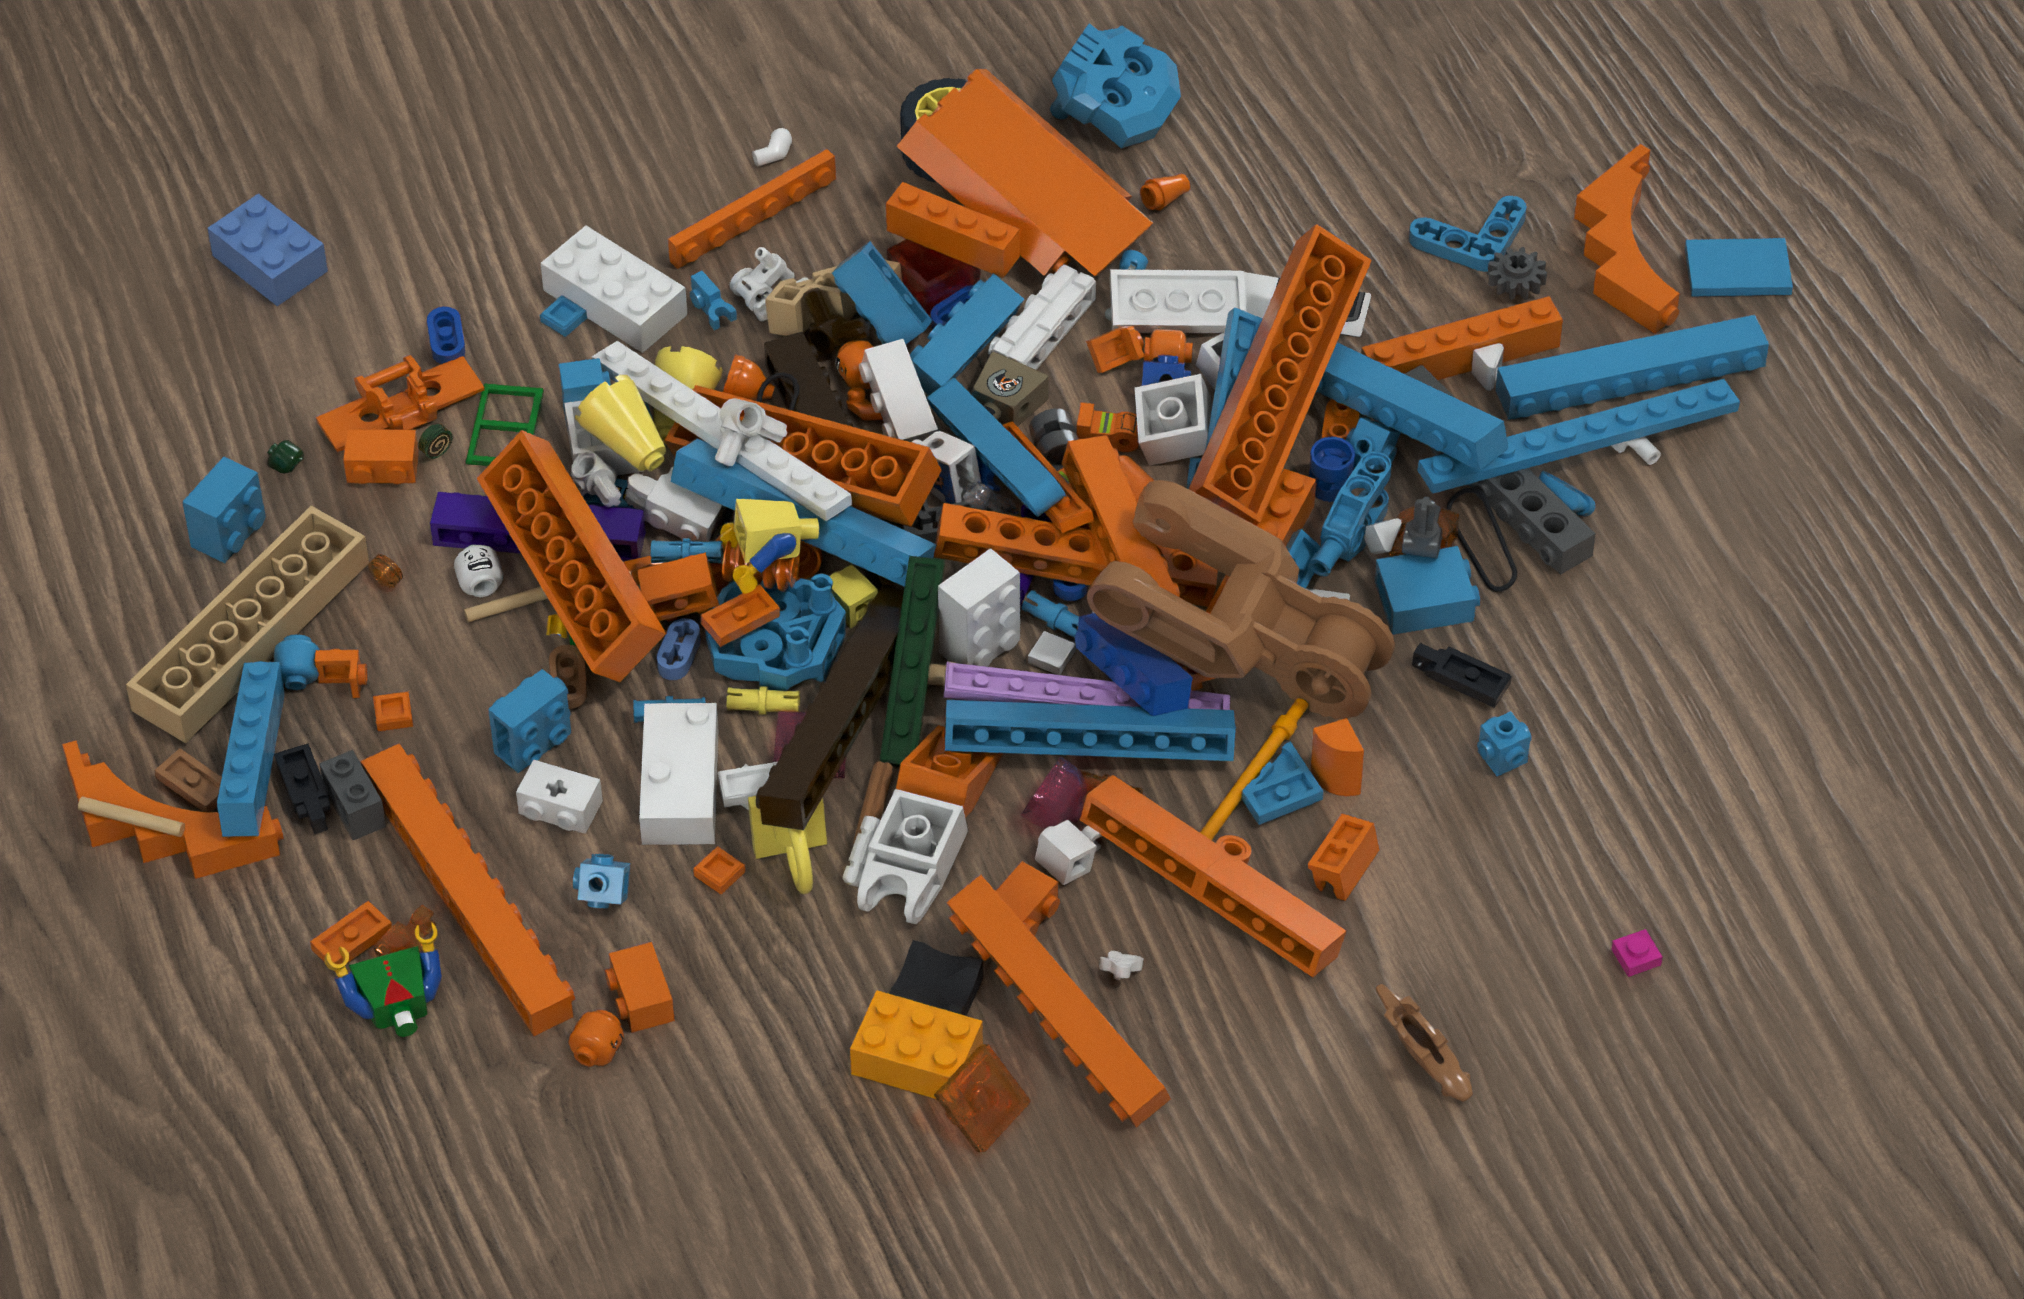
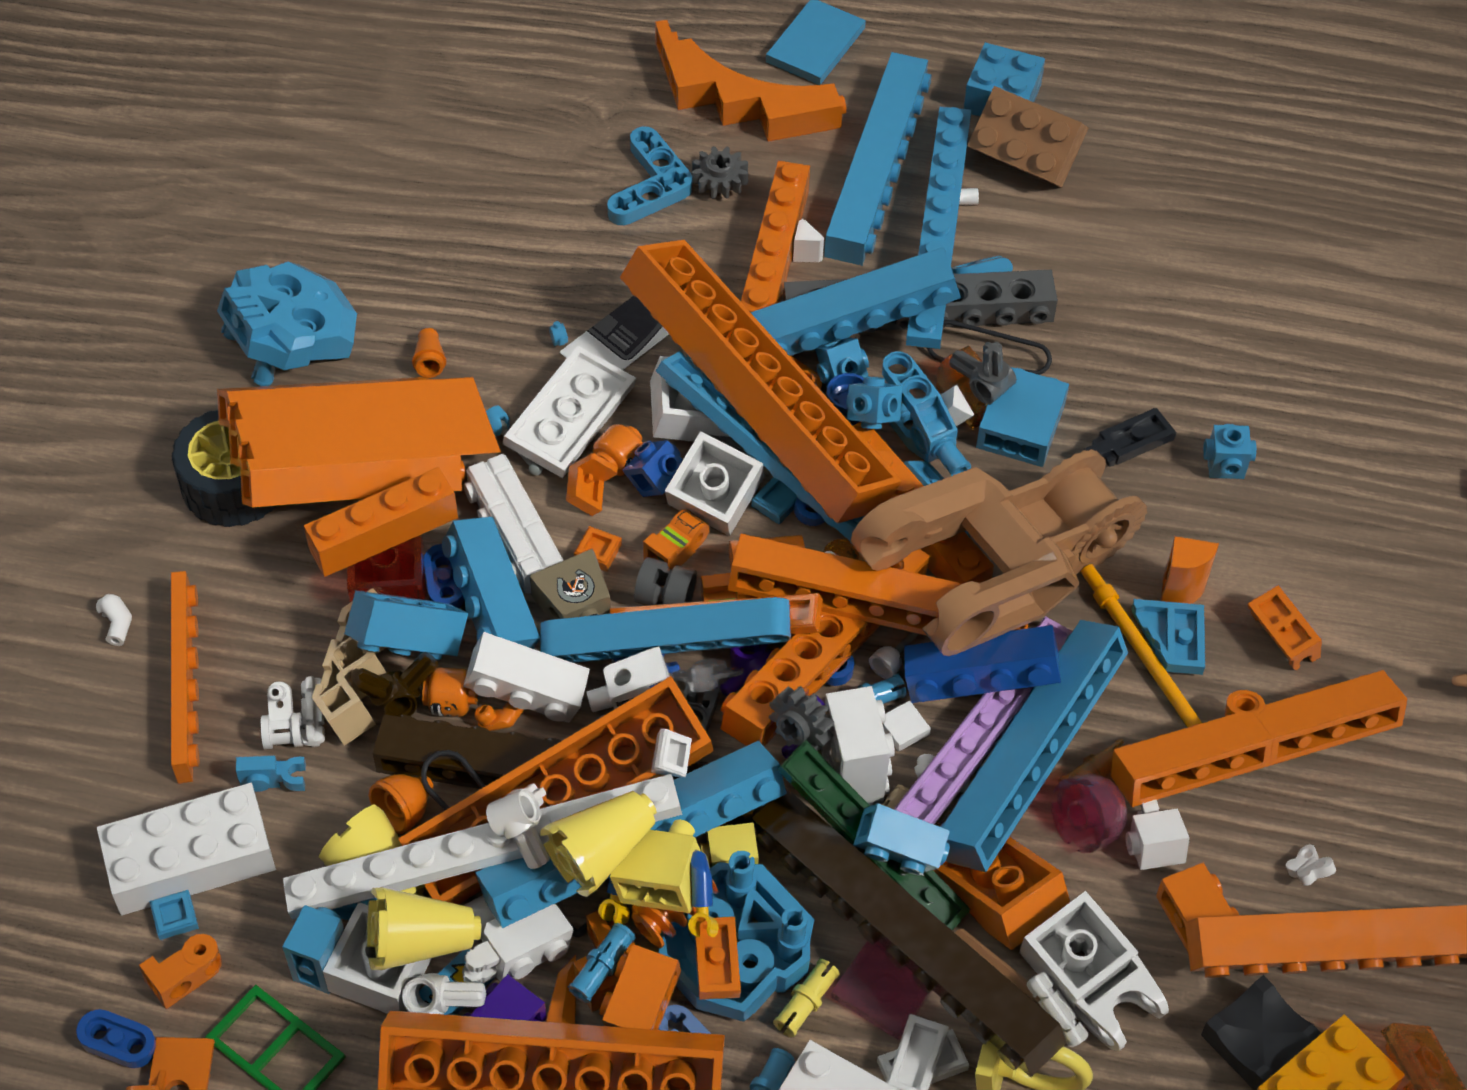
camera: 60 degrees left, 5 degrees up
(521, 341) = (183, 970): none -> orange leg
(755, 471) = (598, 838): none -> light yellow cone
(866, 483) = (671, 753): none -> white slope
(916, 668) = (902, 838): none -> brick
(959, 546) = (801, 718): none -> dark grey gear
(1066, 389) = (603, 544): none -> orange tile
(1254, 259) = (558, 334): none -> dark azure piece
(1322, 466) = (874, 402): none -> dark azure brick
(1736, 450) = (1028, 136): none -> medium nougat brick
(1798, 413) = (1005, 69): none -> dark azure brick

